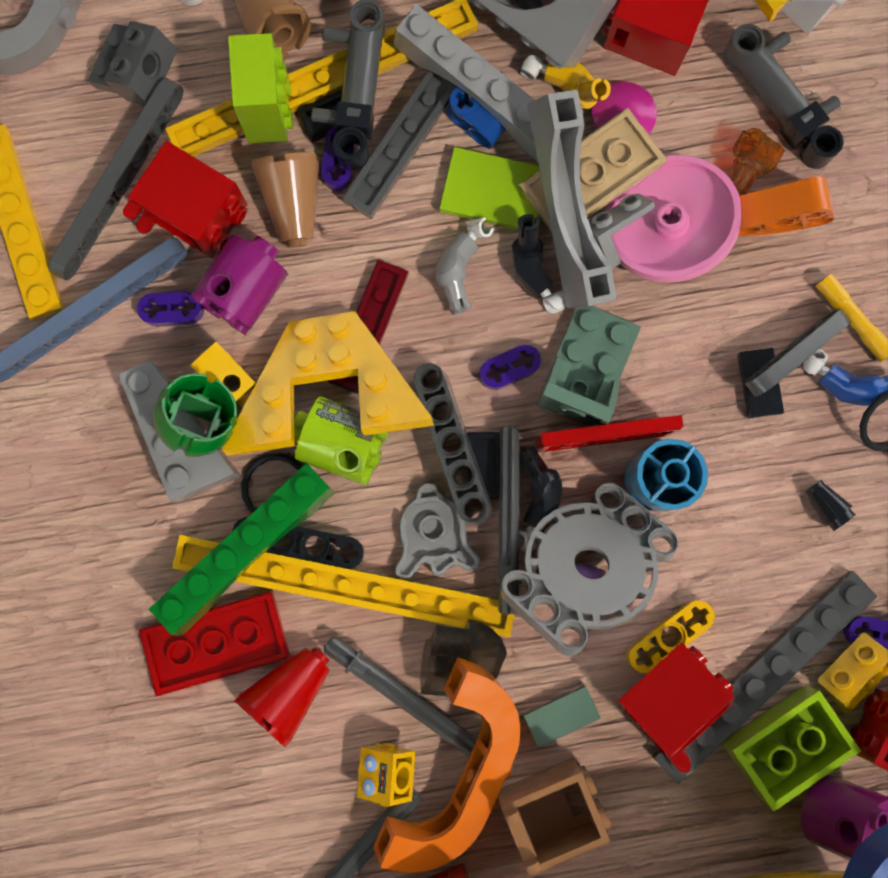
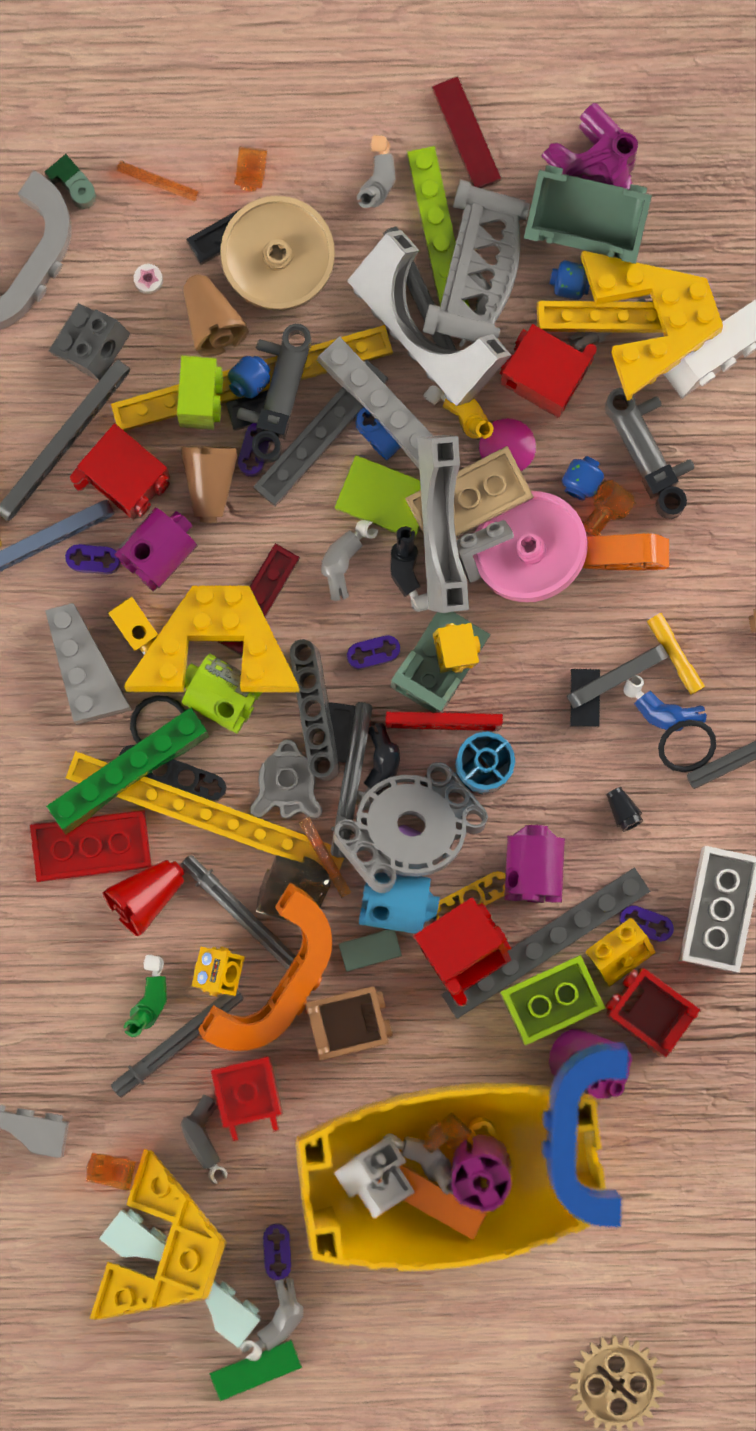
camera: 10 degrees right, 0 degrees up
(199, 398) = (116, 644): green piece -> none
(311, 828) = (149, 1008): none -> green arm
(318, 71) = (249, 376): none -> blue head
(493, 617) = (325, 857): none -> clear orange bar
(600, 668) = (403, 907): none -> dark azure cylinder
(608, 345) = (456, 647): none -> yellow head
(717, 134) = (583, 478): none -> blue head
(743, 590) = (534, 865): none -> magenta cylinder

